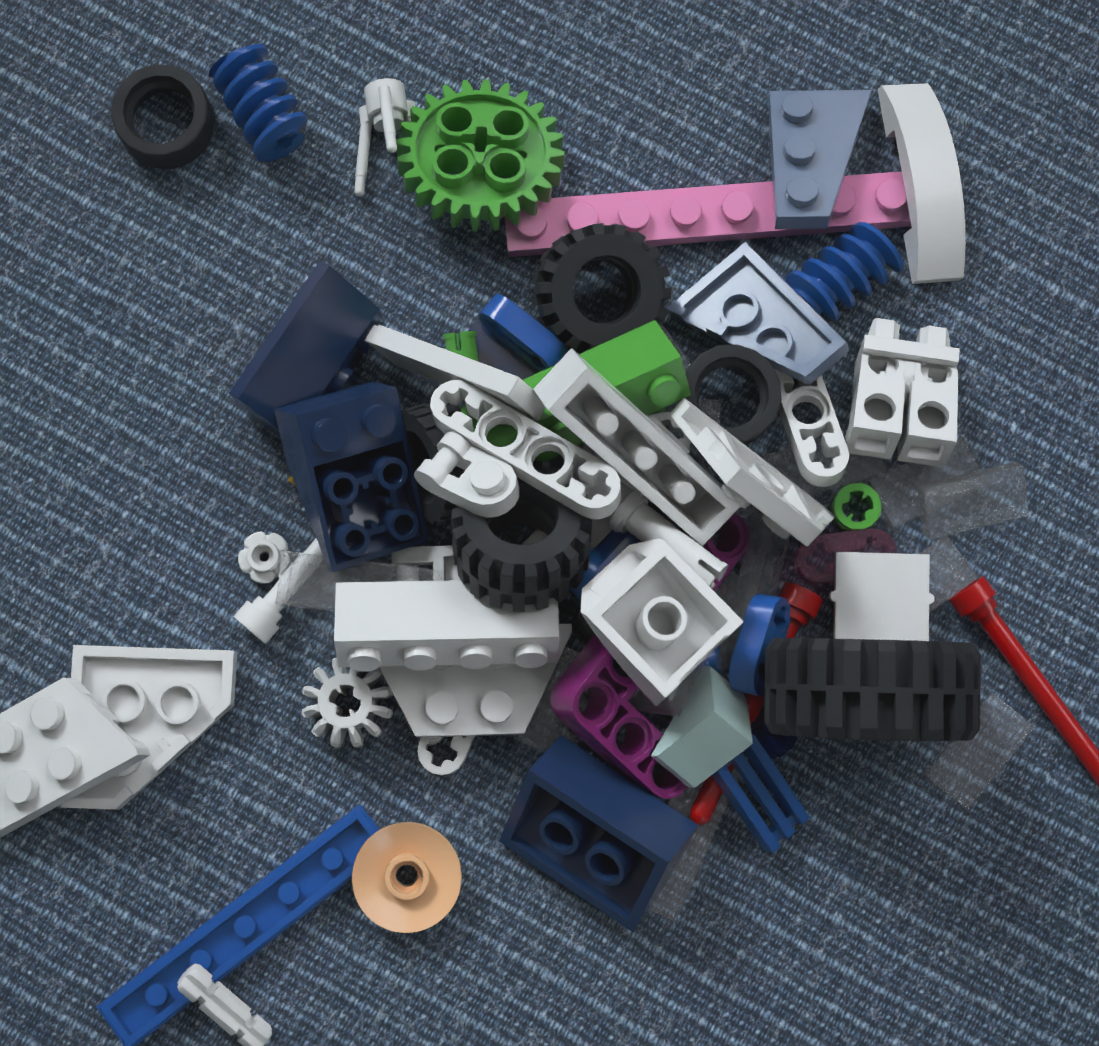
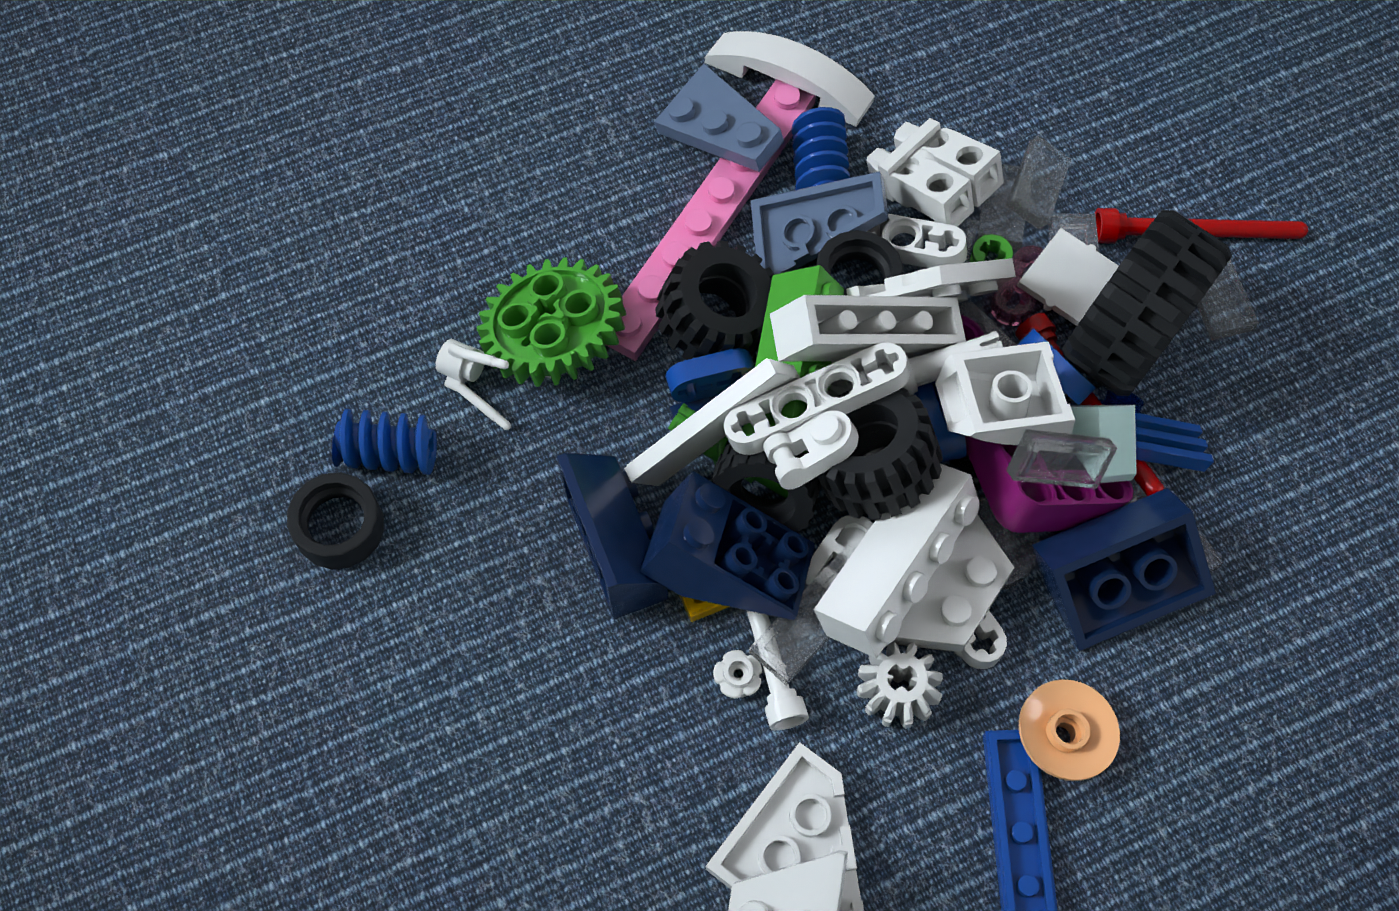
camera: 55 degrees left, 15 degrees down
(633, 709) = (1061, 459): none -> clear tile

